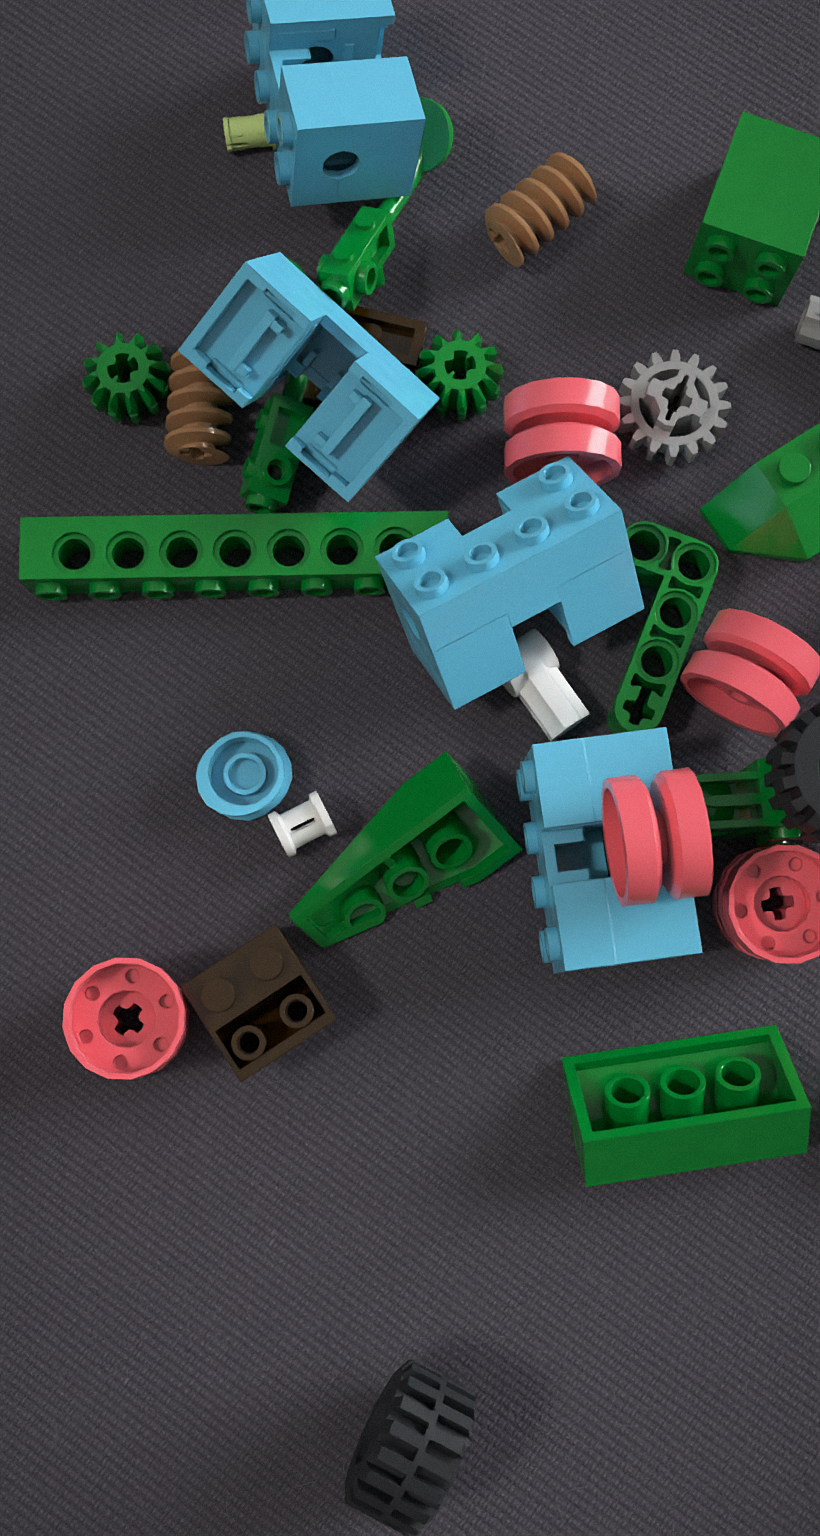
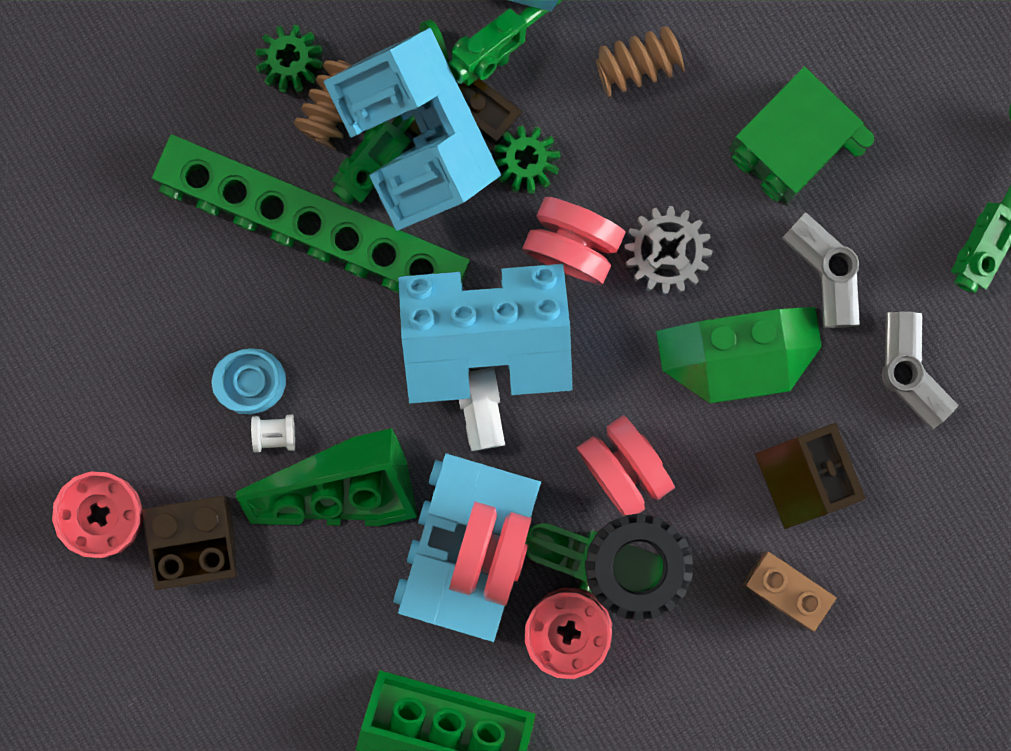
camera: 25 degrees right, 5 degrees up
(656, 638) = (575, 410): green beam -> none

